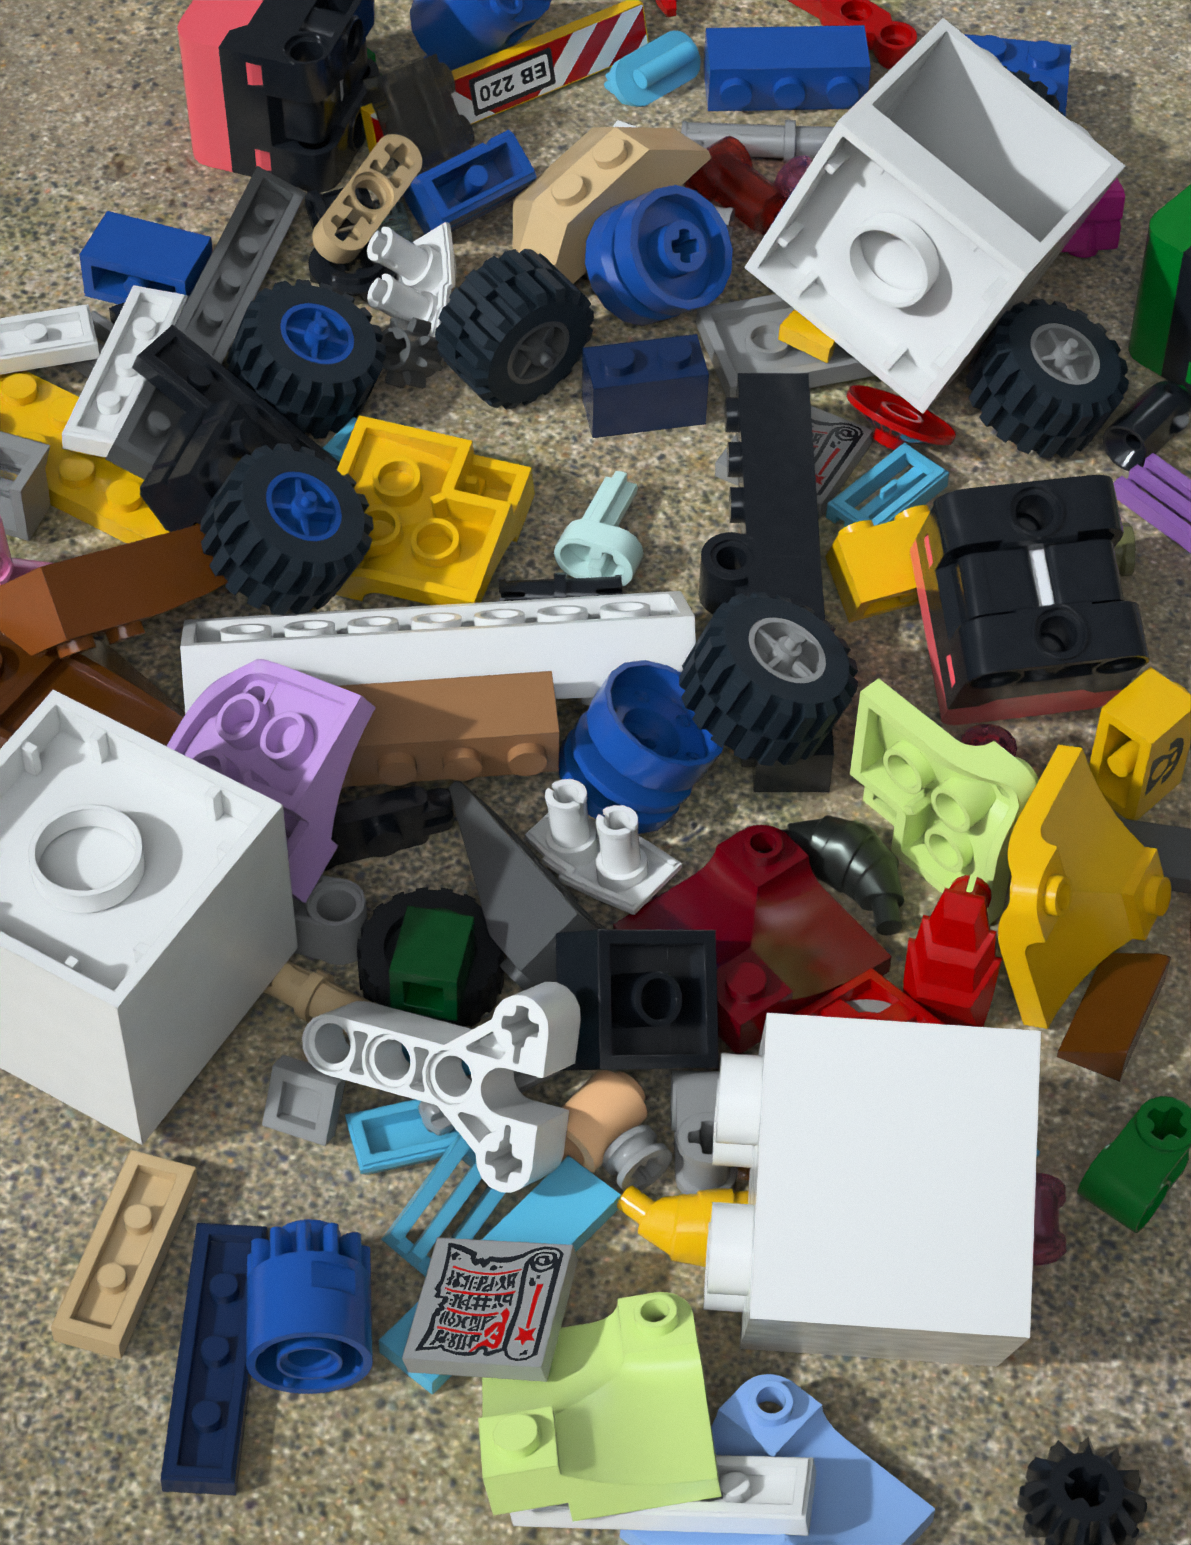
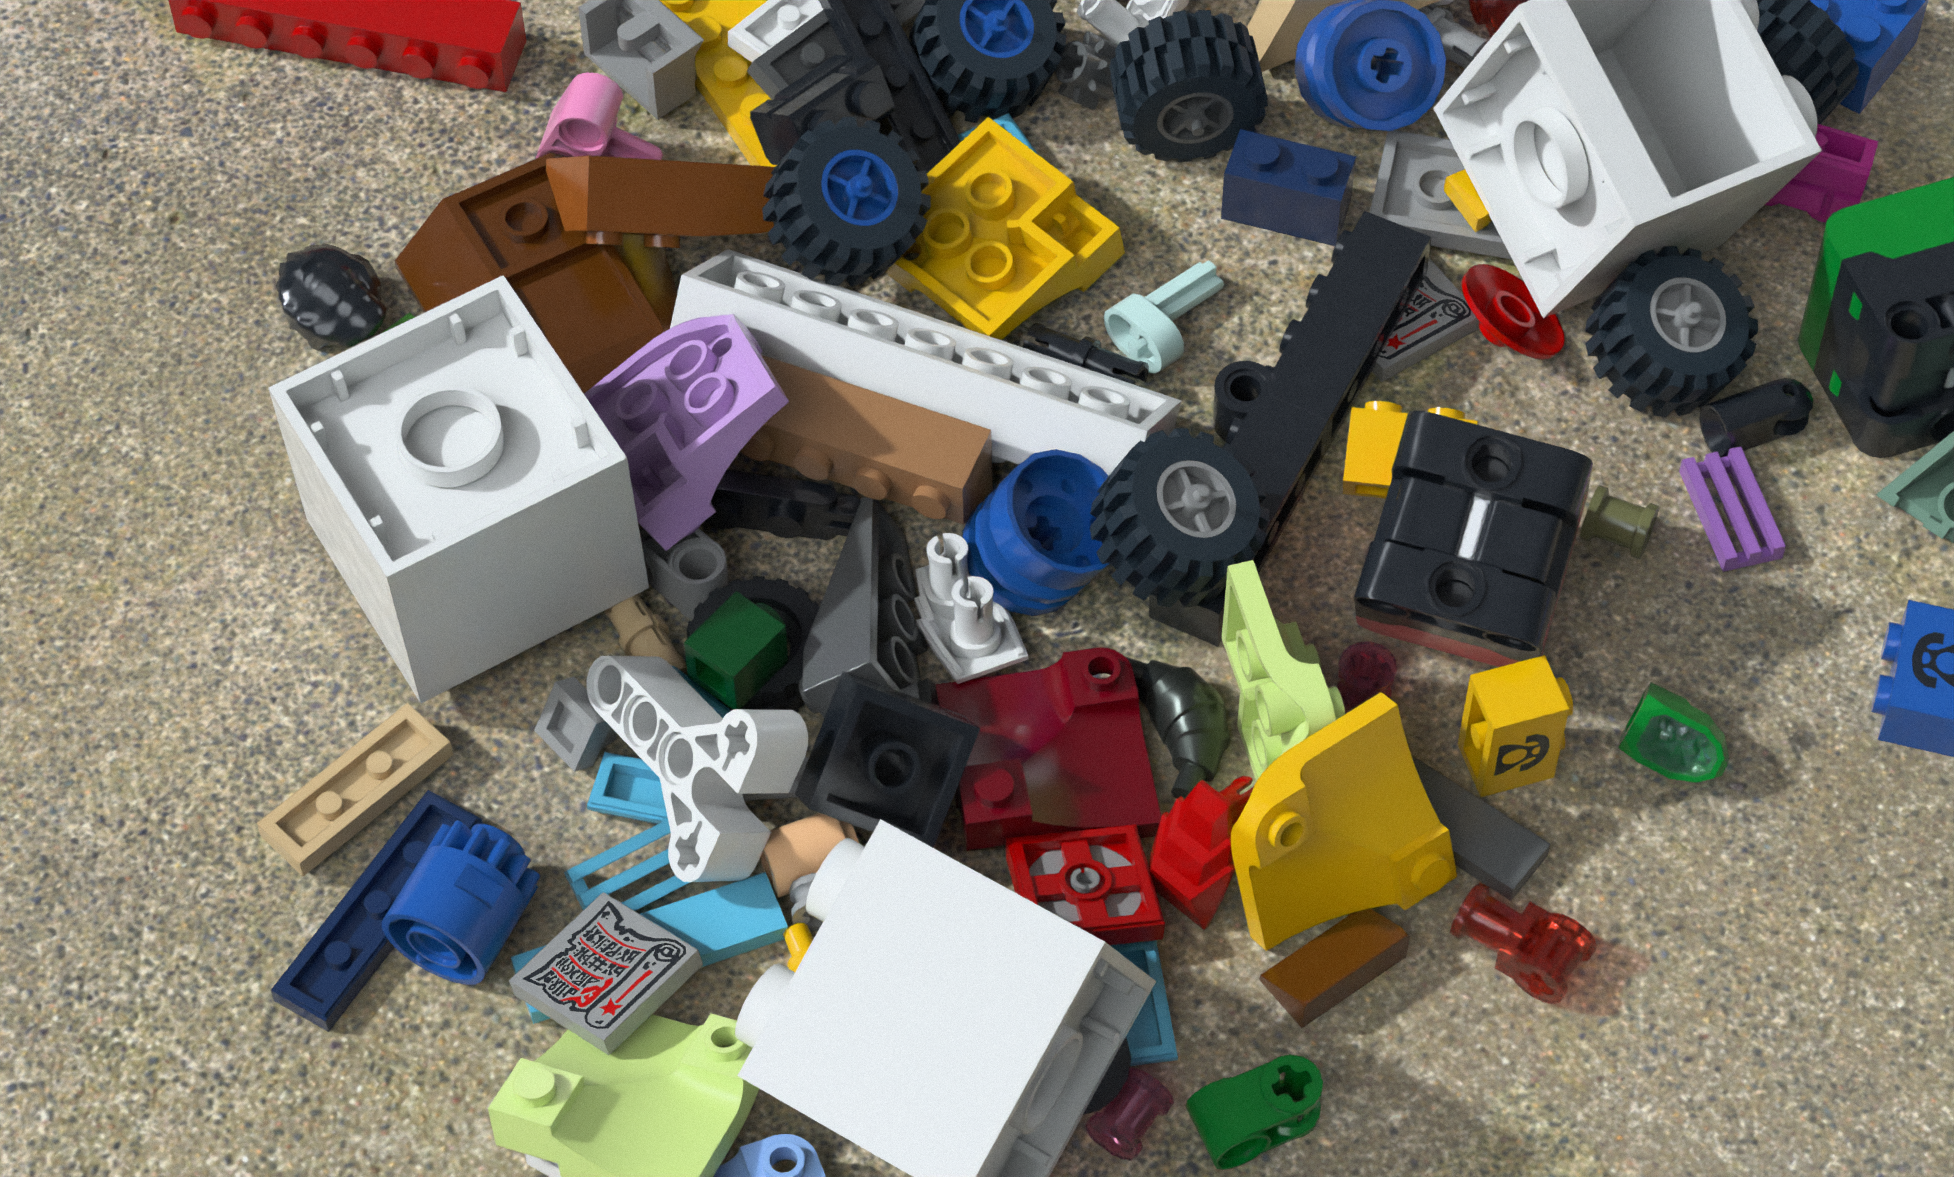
camera: 30 degrees right, 5 degrees up
(910, 490) = (1462, 390): medium azure tile -> none

